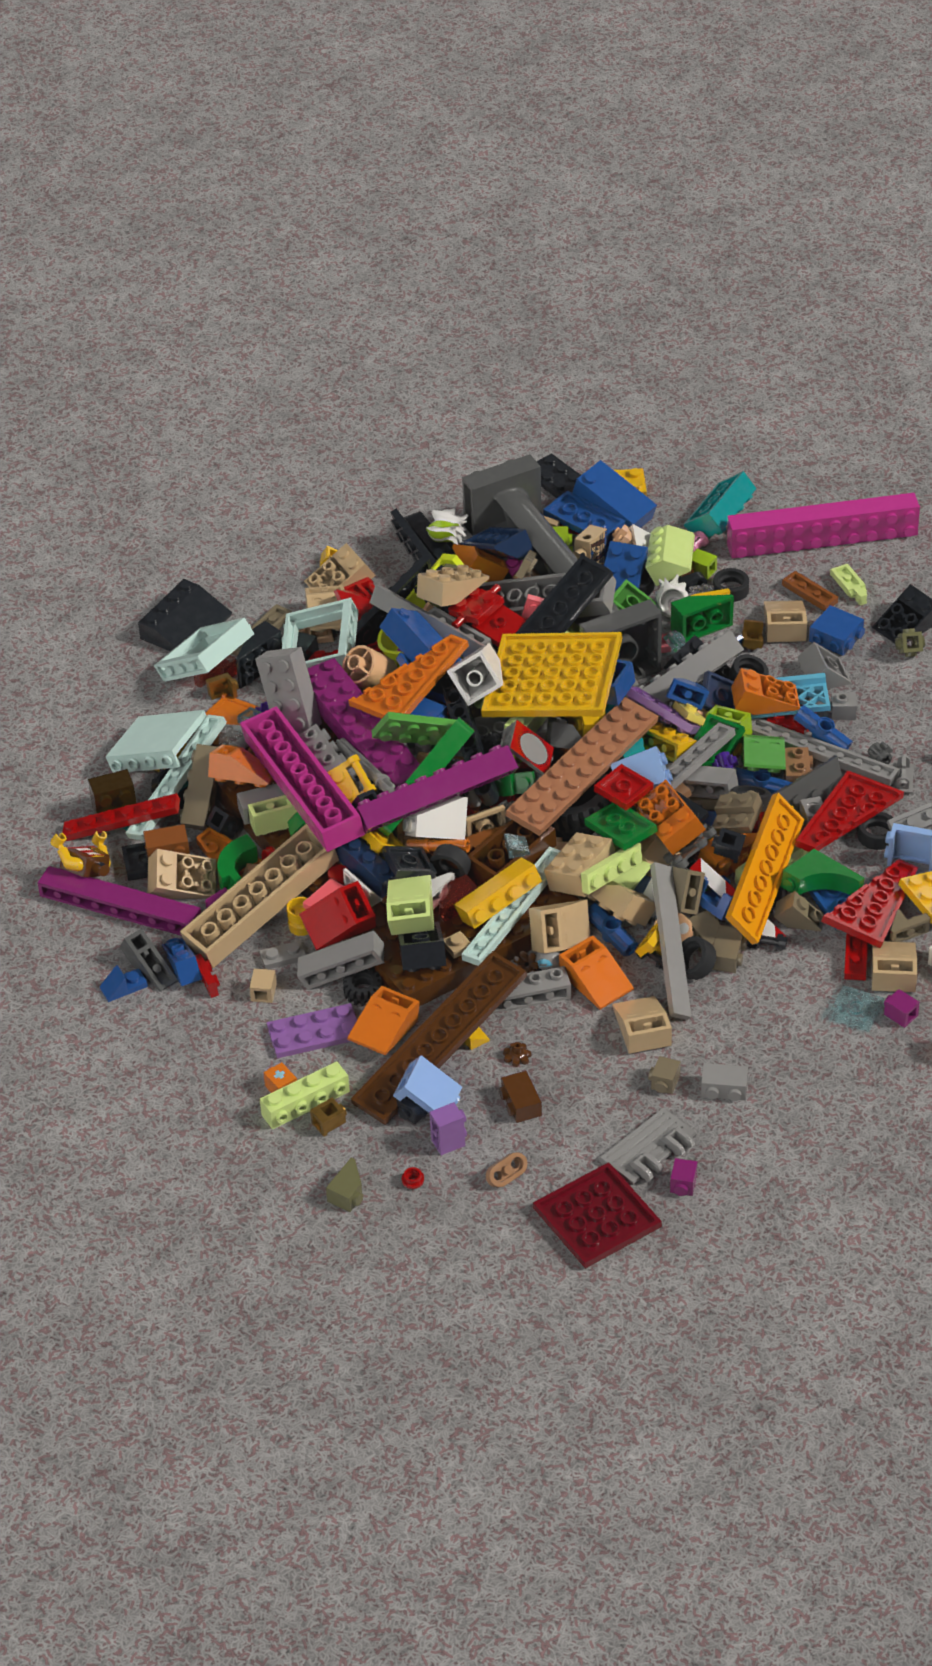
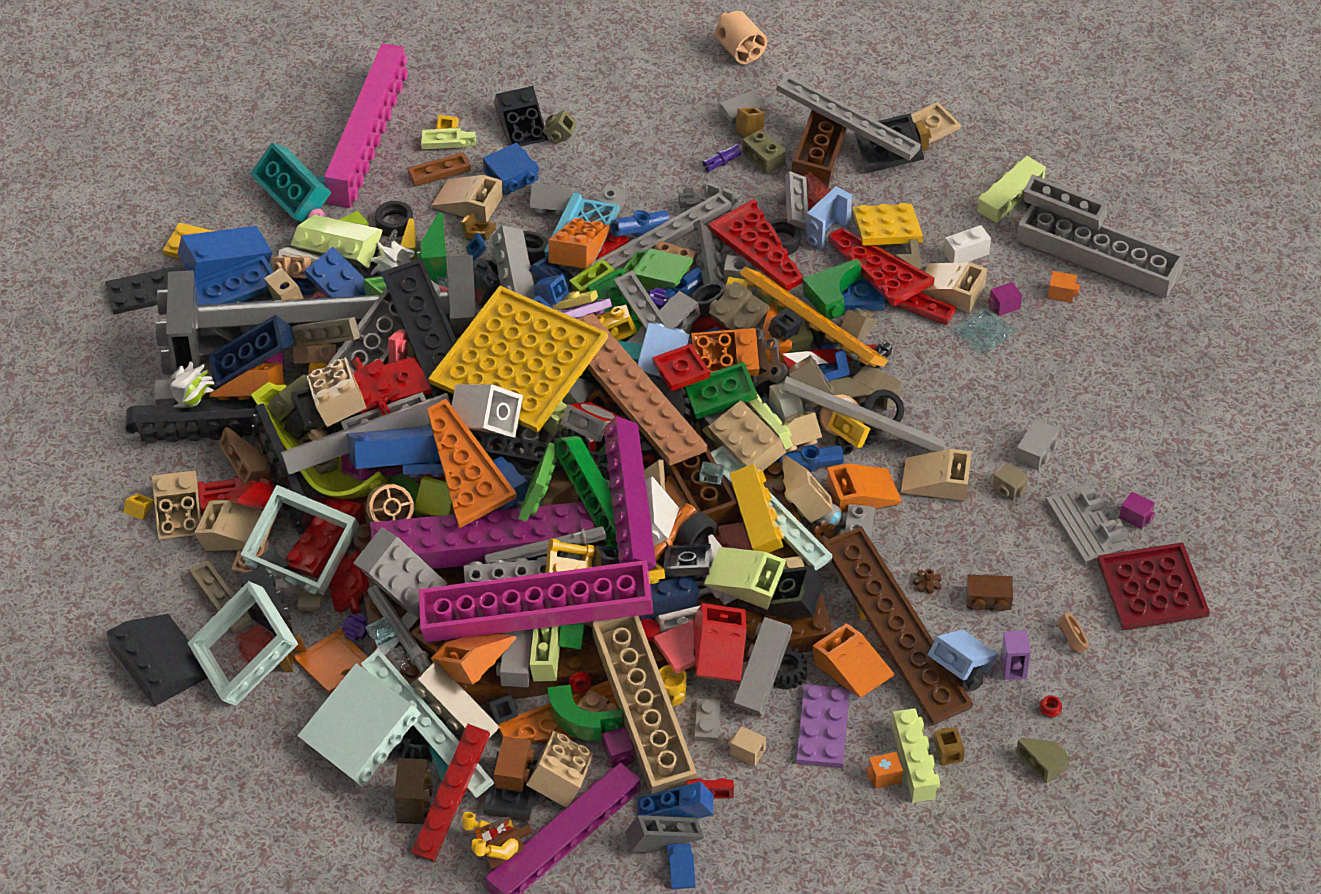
camera: 70 degrees left, 5 degrees up
(871, 578) = (447, 122): none -> yellow slope

